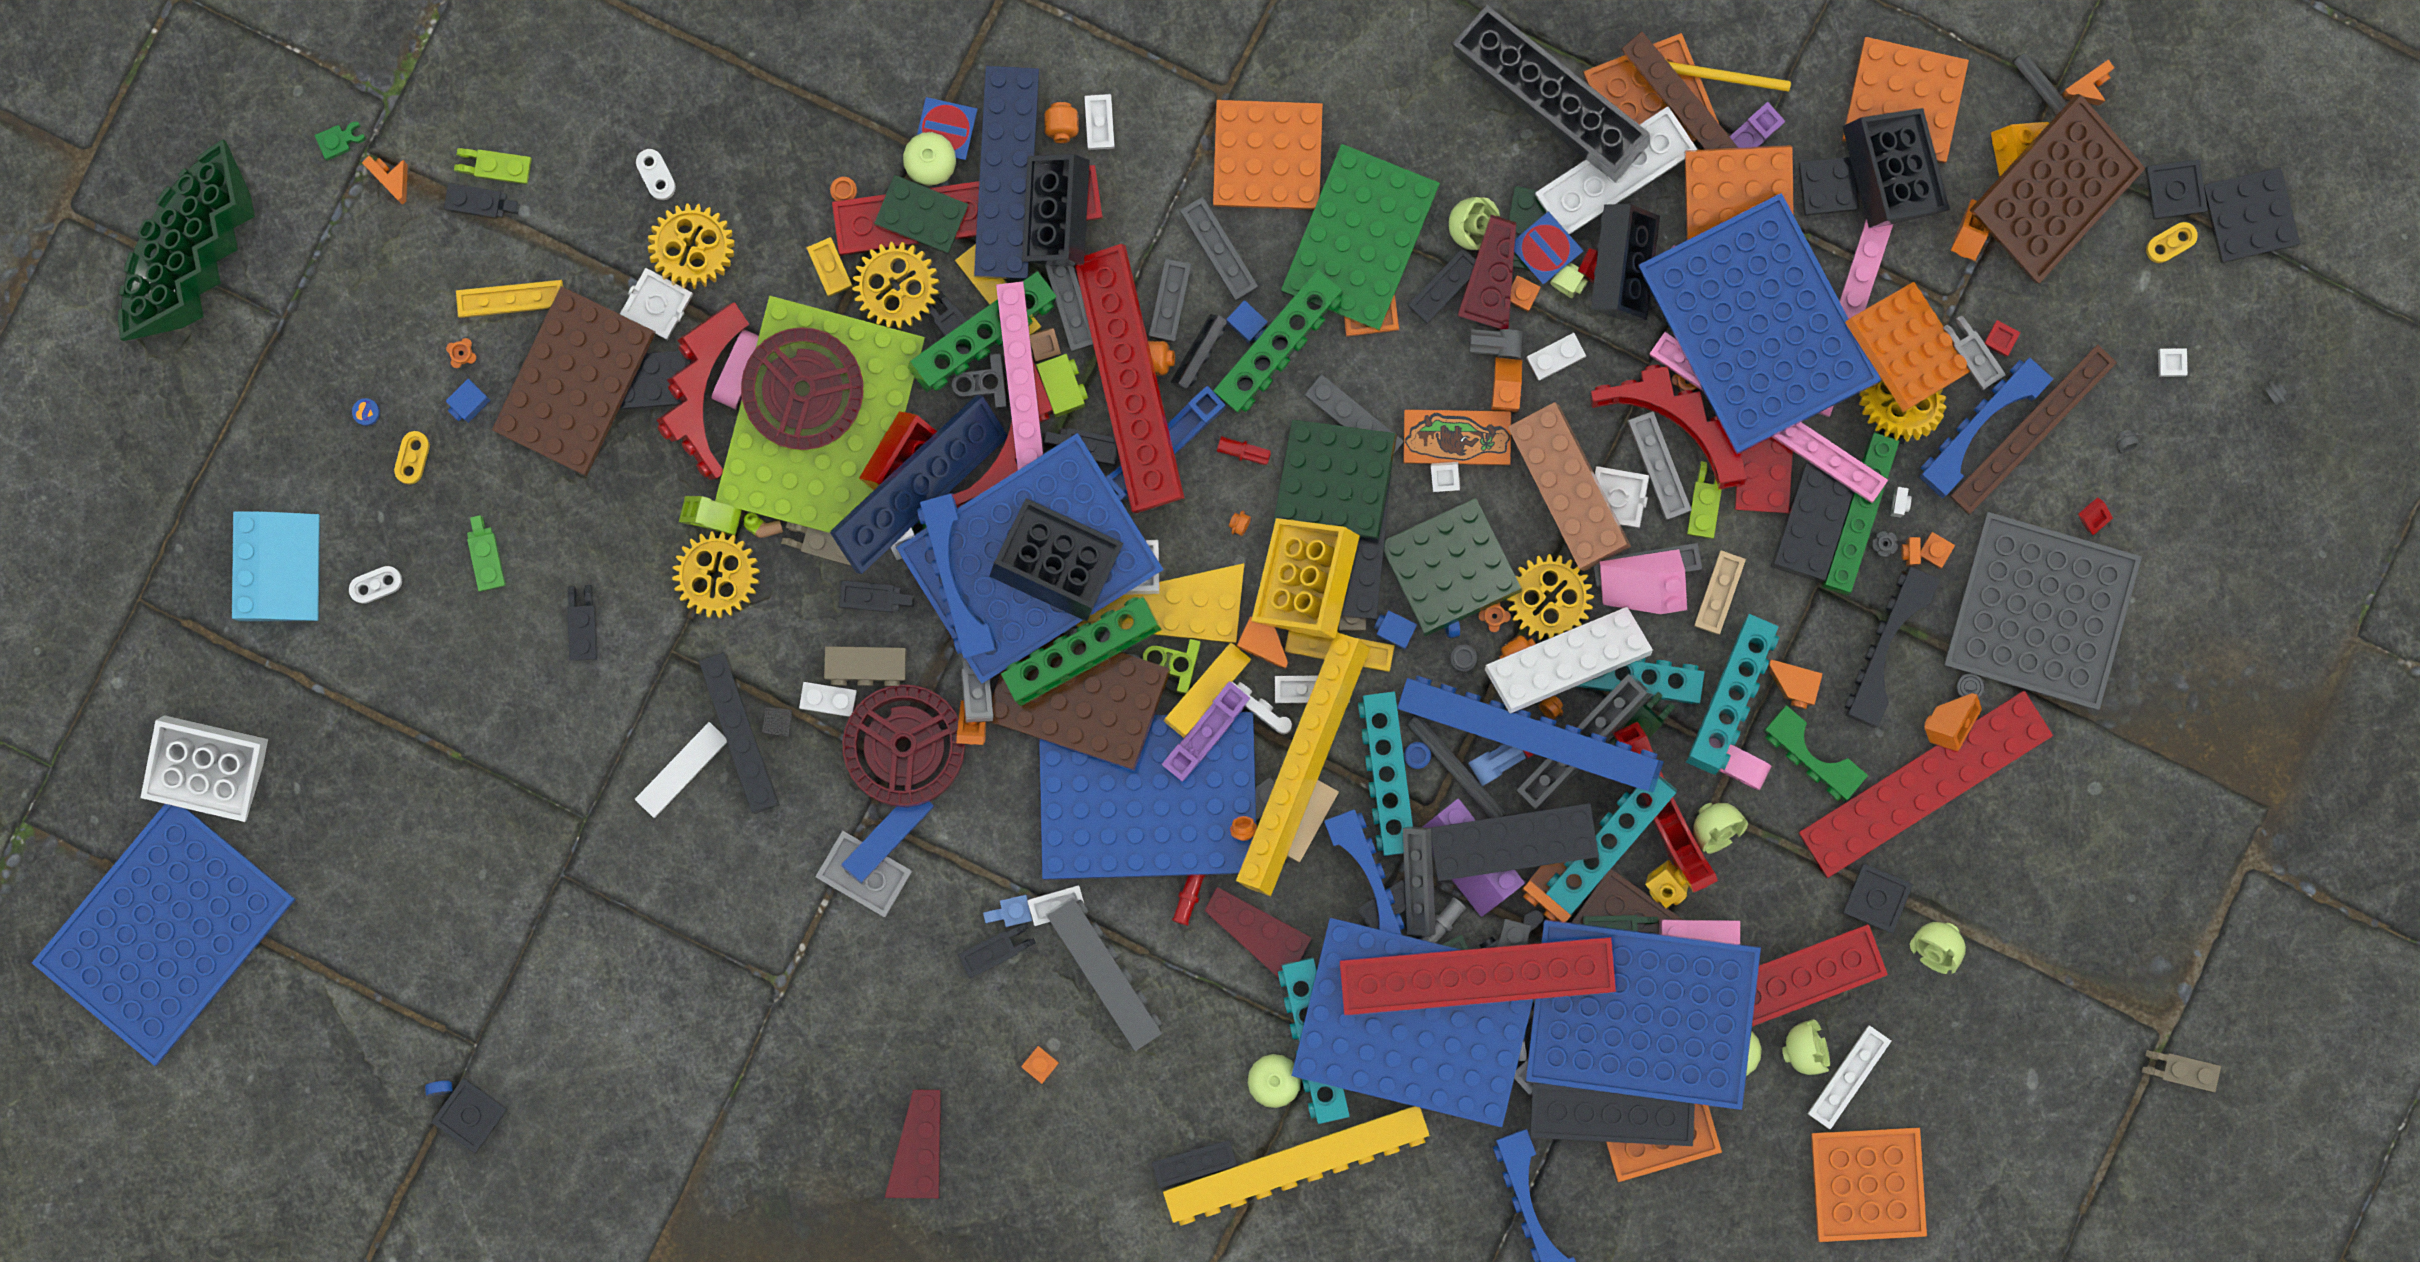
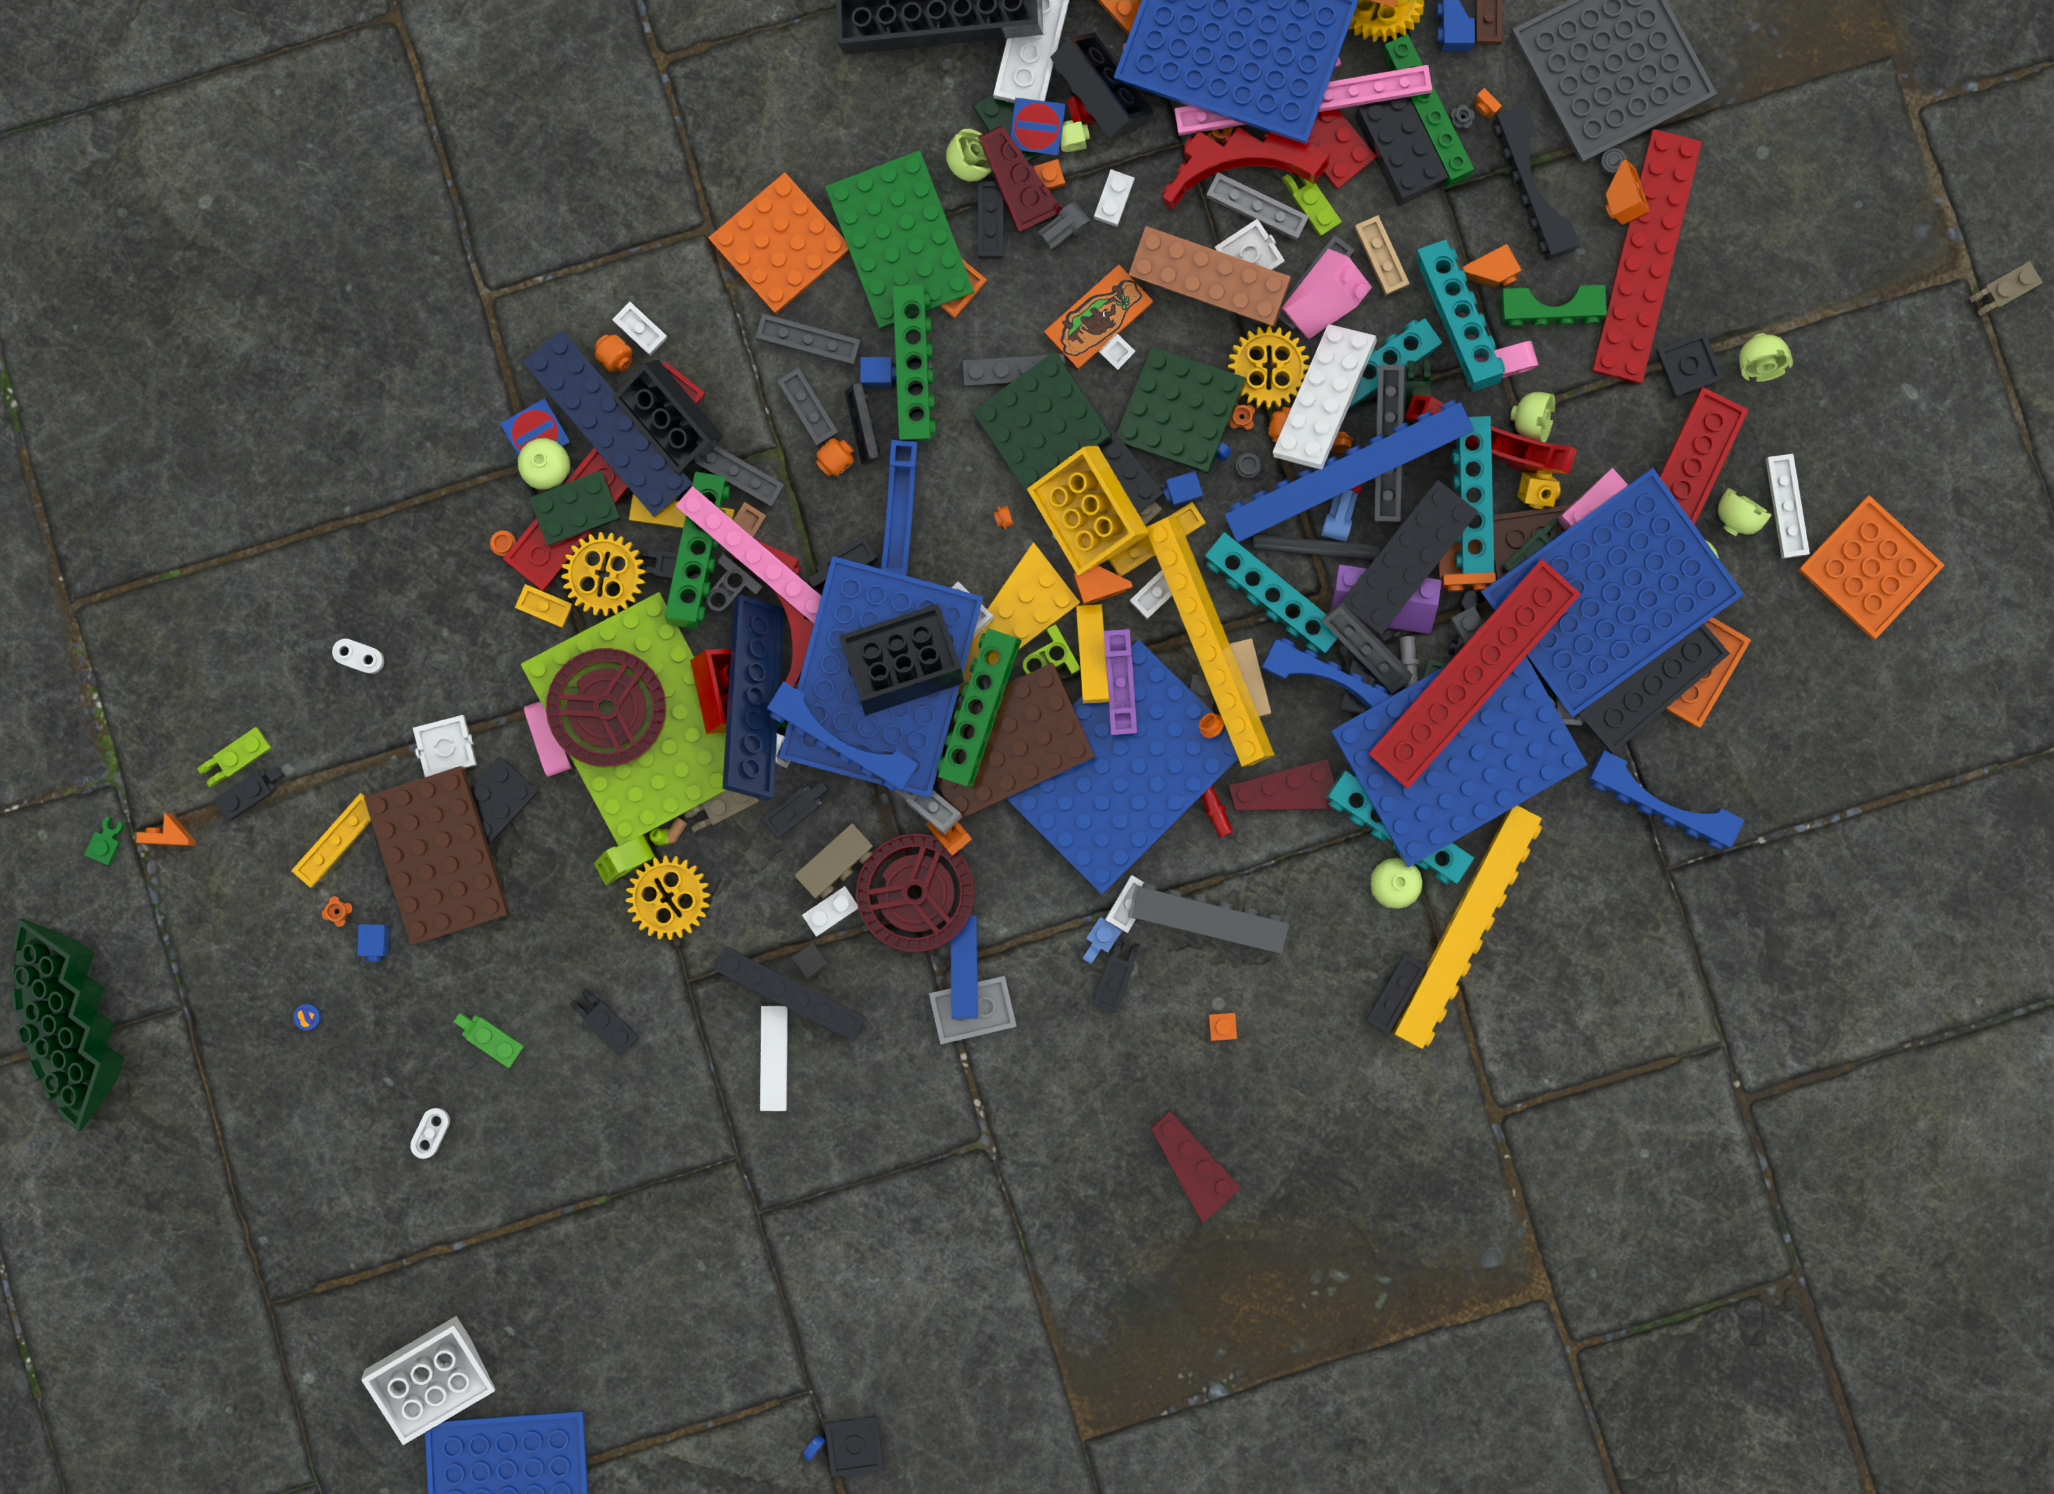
camera: 45 degrees left, 0 degrees up
(275, 566) = (345, 1188): medium azure slope -> none
(411, 458) = (372, 1018): yellow plate -> none
(686, 419) = (543, 808): arch -> none
(712, 254) = (453, 674): yellow gear -> none
(1061, 385) = (788, 536): lime brick -> none
(1129, 379) = (832, 487): red plate -> none
(1243, 450) = (958, 464): red axle -> none
(1263, 711) = (1145, 632): white plate -> none
(1417, 755) = (1280, 563): blue tile -> none
(1507, 385) = (1099, 248): orange slope -> none
(1901, 502) = (1446, 78): white plate -> none
(1936, 550) = (1502, 88): orange plate -> none

